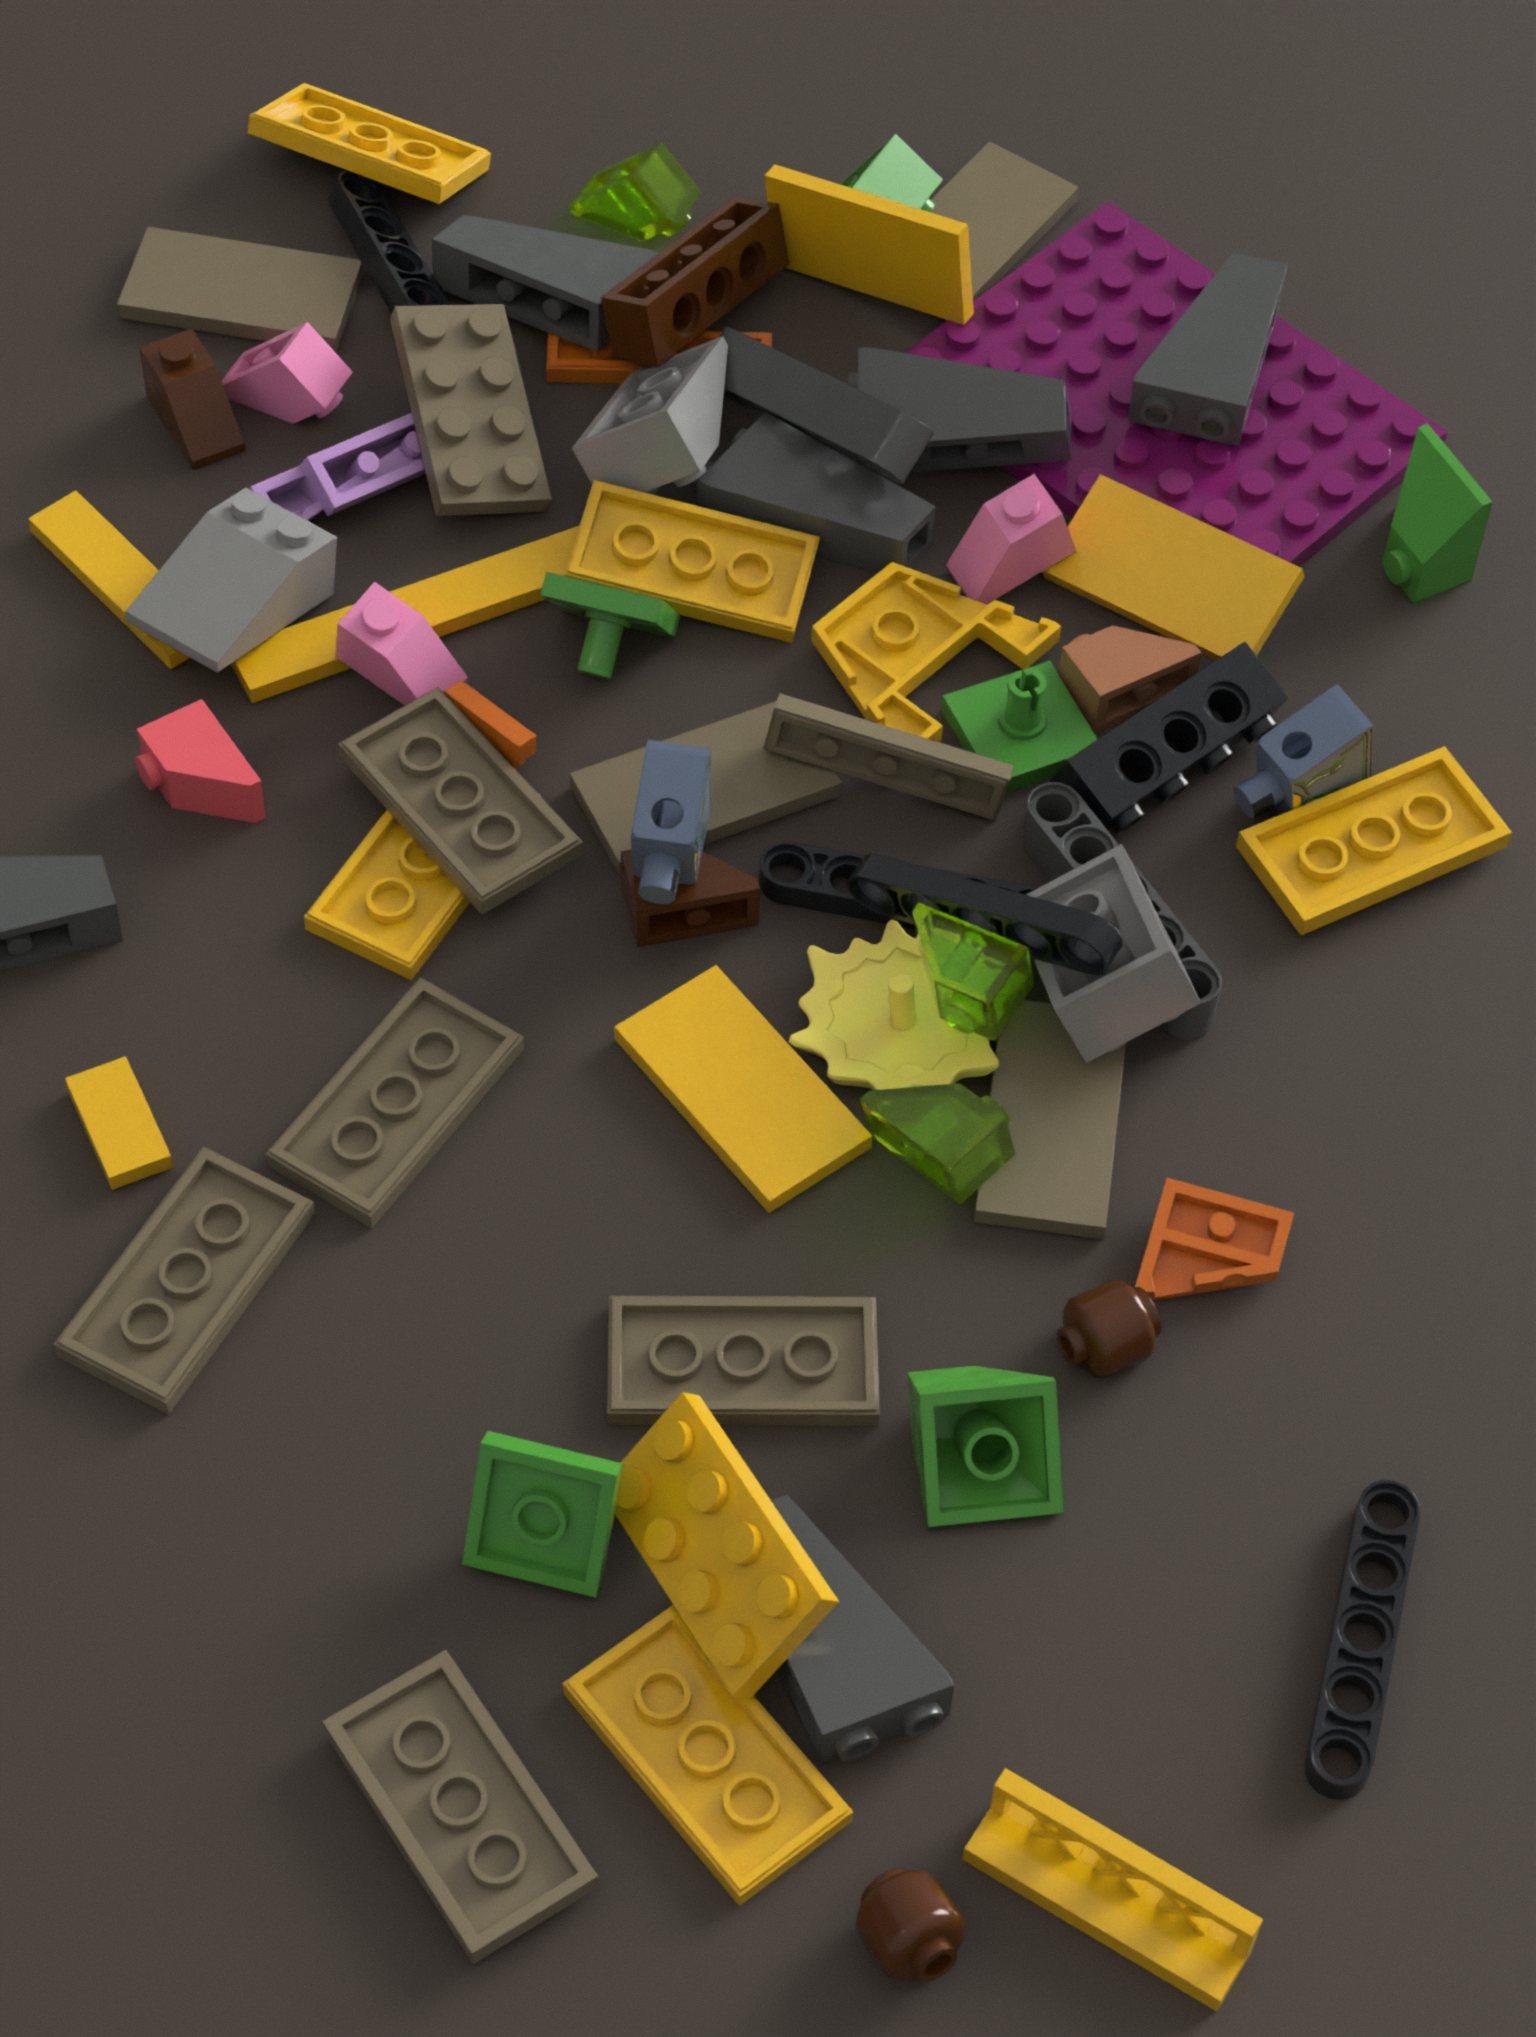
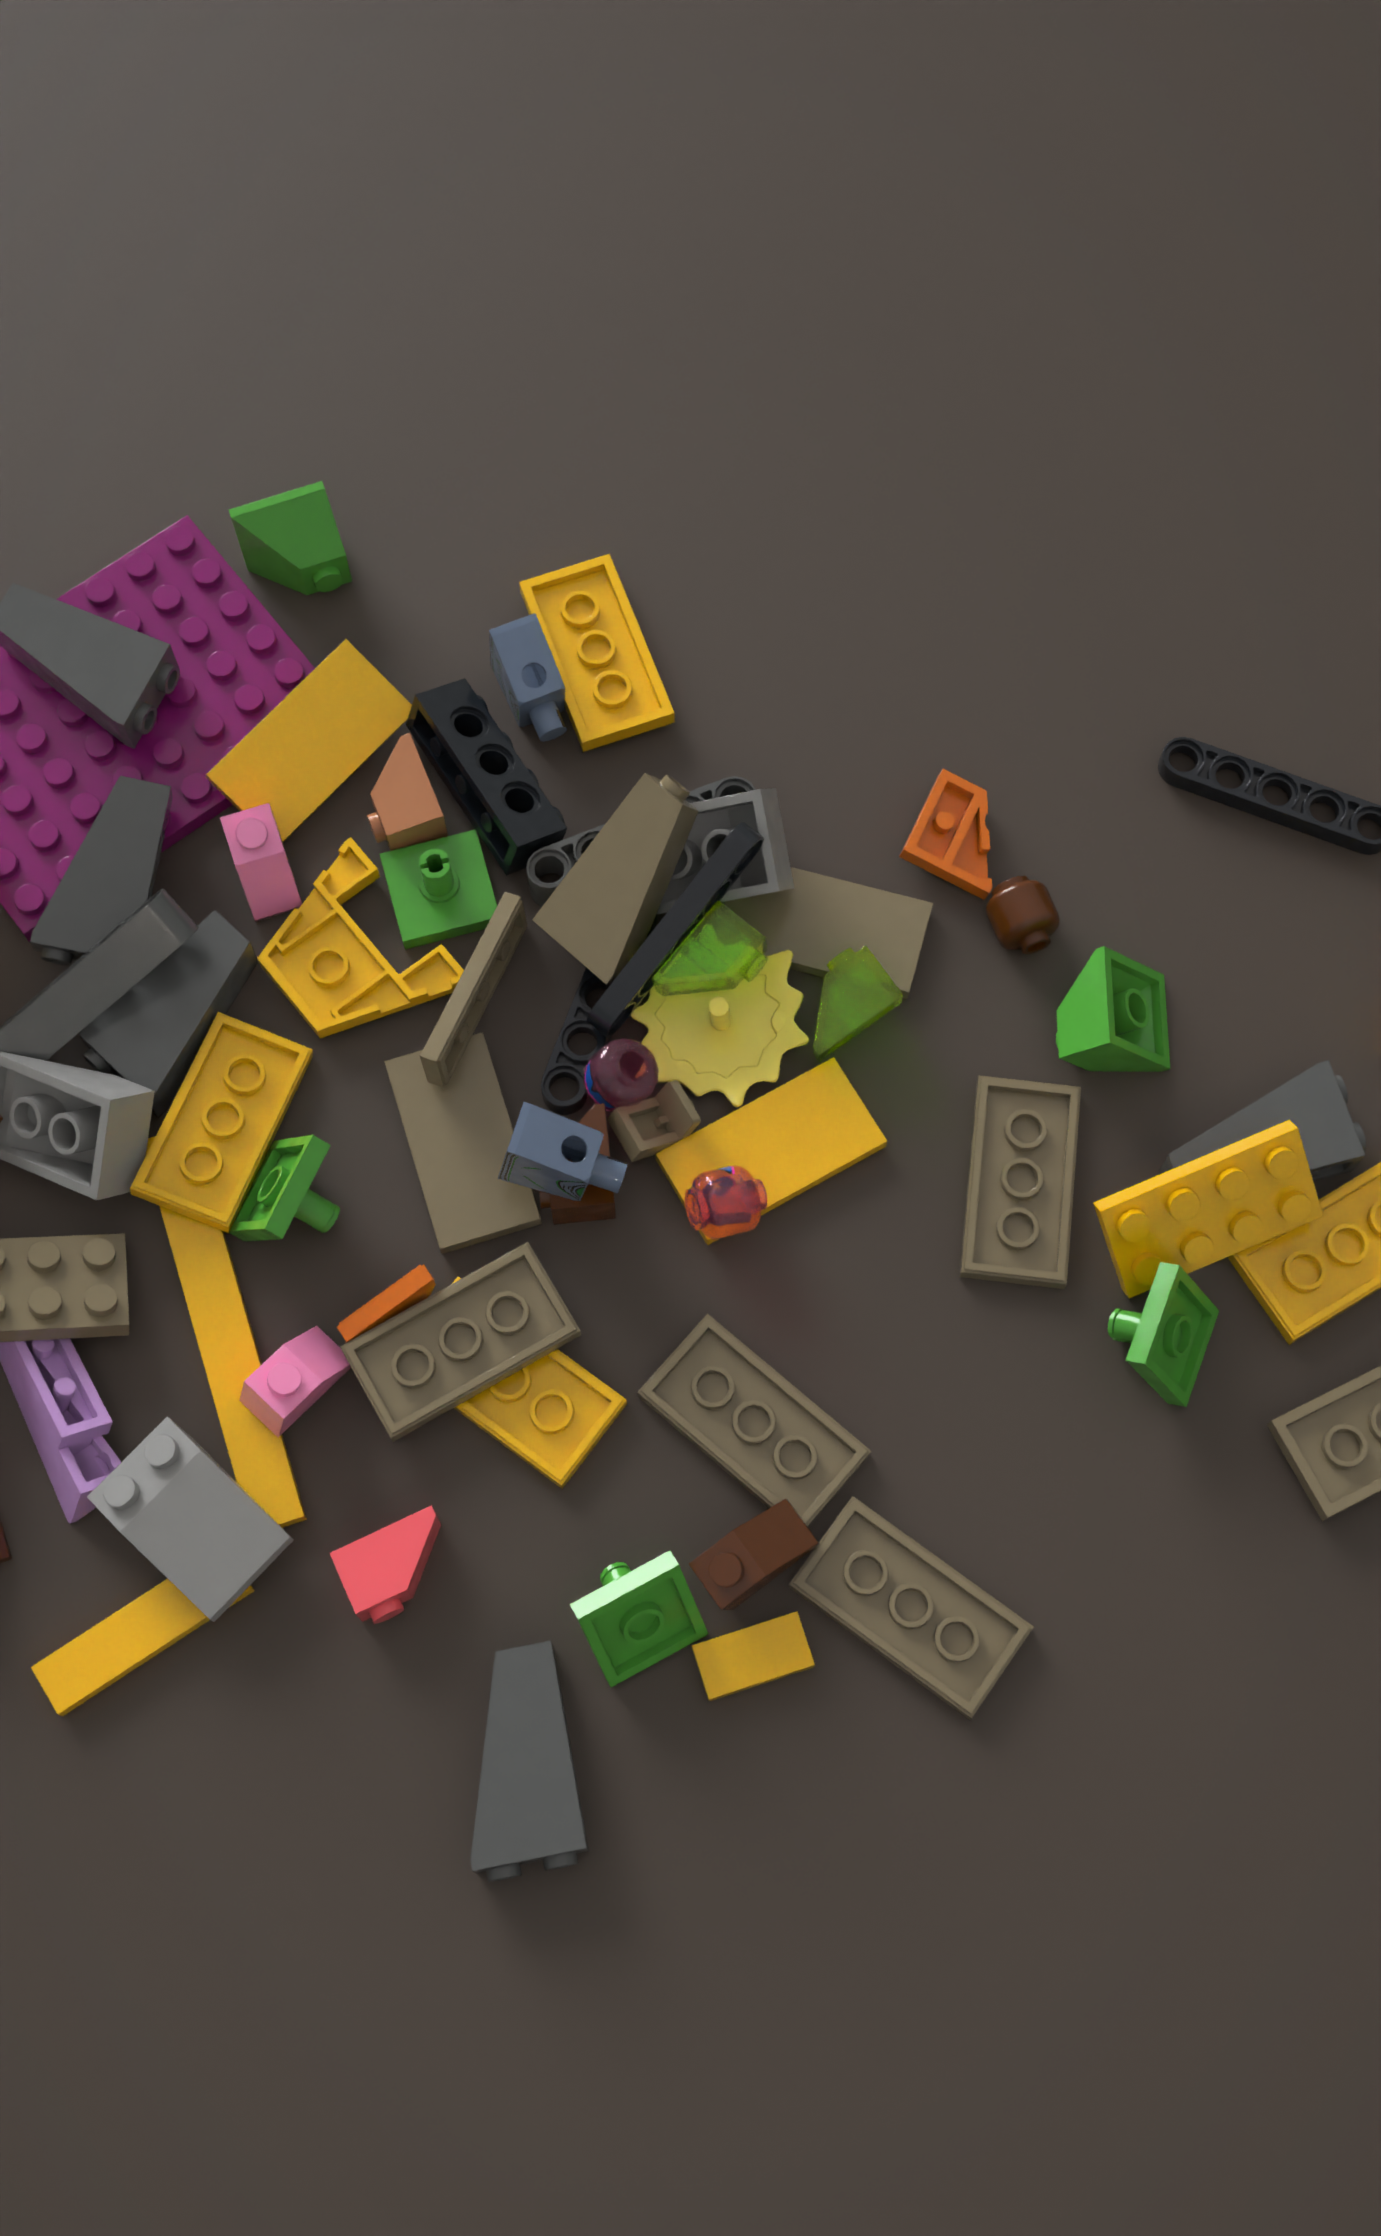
camera: 80 degrees left, 15 degrees up
(146, 985) = (639, 1616): none -> bright green tile
(227, 1093) = (753, 1555): none -> reddish brown slope
(654, 1021) = (725, 1202): none -> clear pink head
(750, 953) = (655, 1122): none -> dark tan bracket
(810, 888) = (620, 1074): none -> clear pink head
(1047, 848) = (620, 879): none -> dark tan slope

